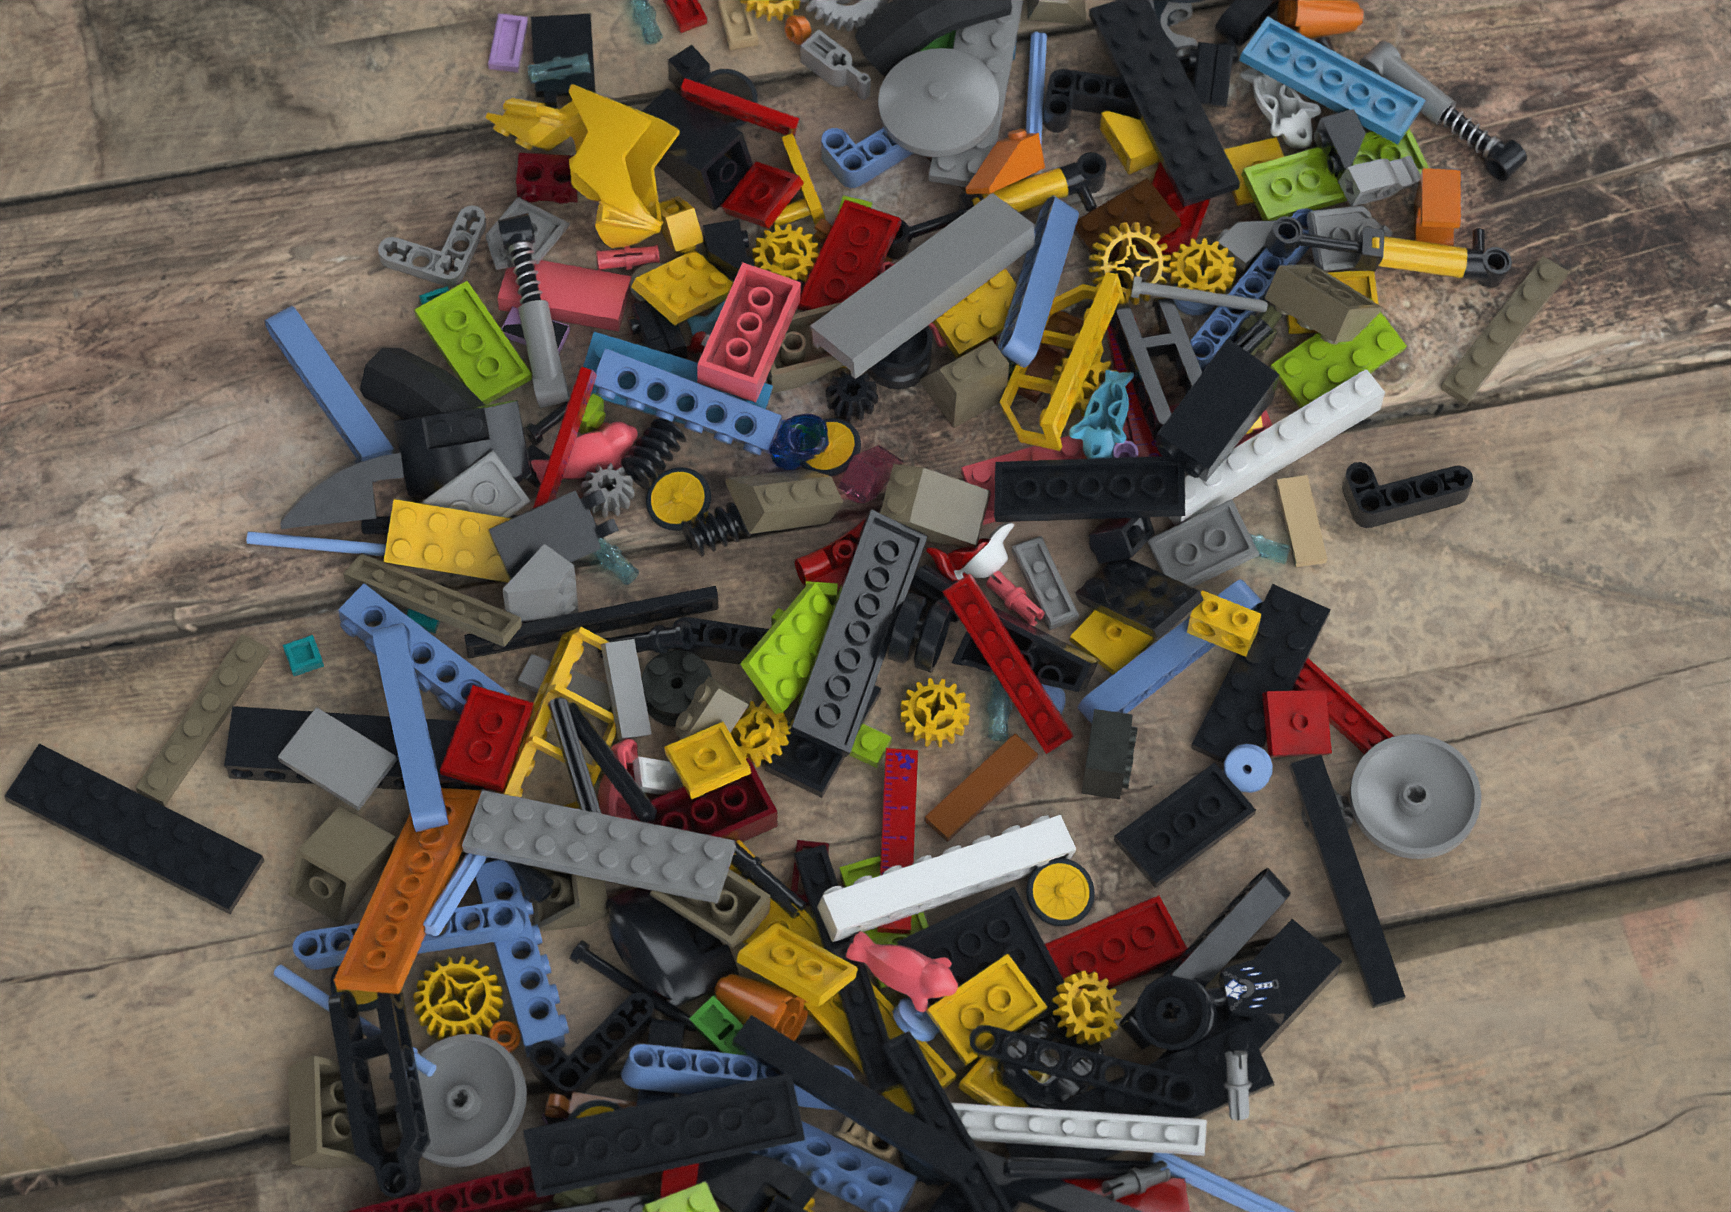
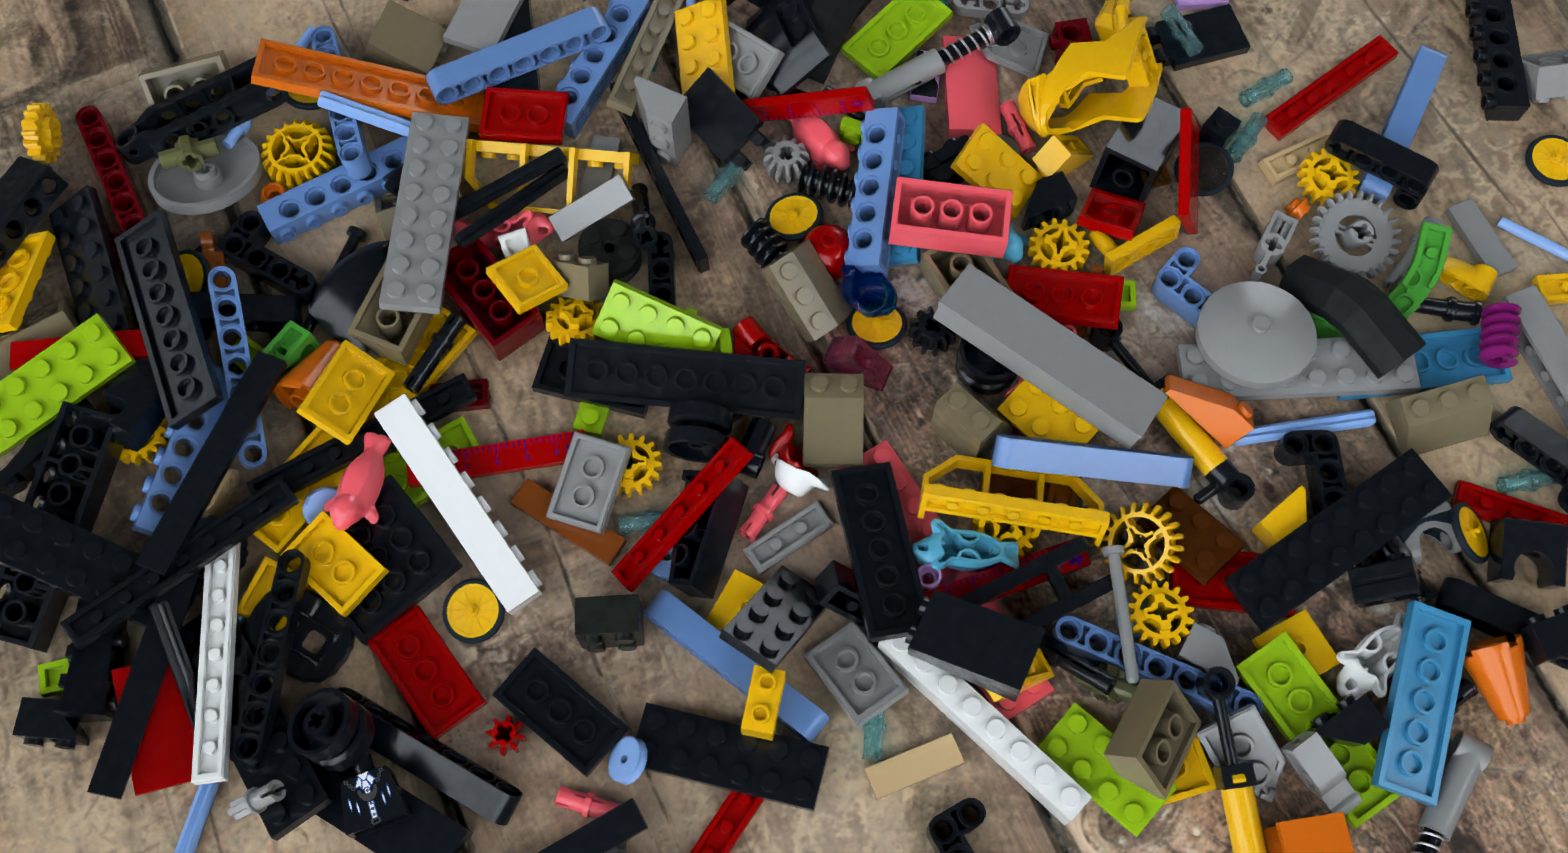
camera: 80 degrees right, 5 degrees up
(438, 1107) = (189, 153): none -> olive axle
(688, 37) = (1247, 136): none -> clear light blue pin
(724, 463) = (830, 244): none -> red cylinder
(951, 748) = (589, 483): none -> light grey tile
(1087, 1007) = (337, 651): yellow gear -> none
(1136, 1180) = (177, 725): dark grey pin -> none
(1197, 885) = (496, 734): none -> red gear
(1281, 817) = (583, 803): none -> coral pin
(1297, 723) = (683, 799): red plate -> none

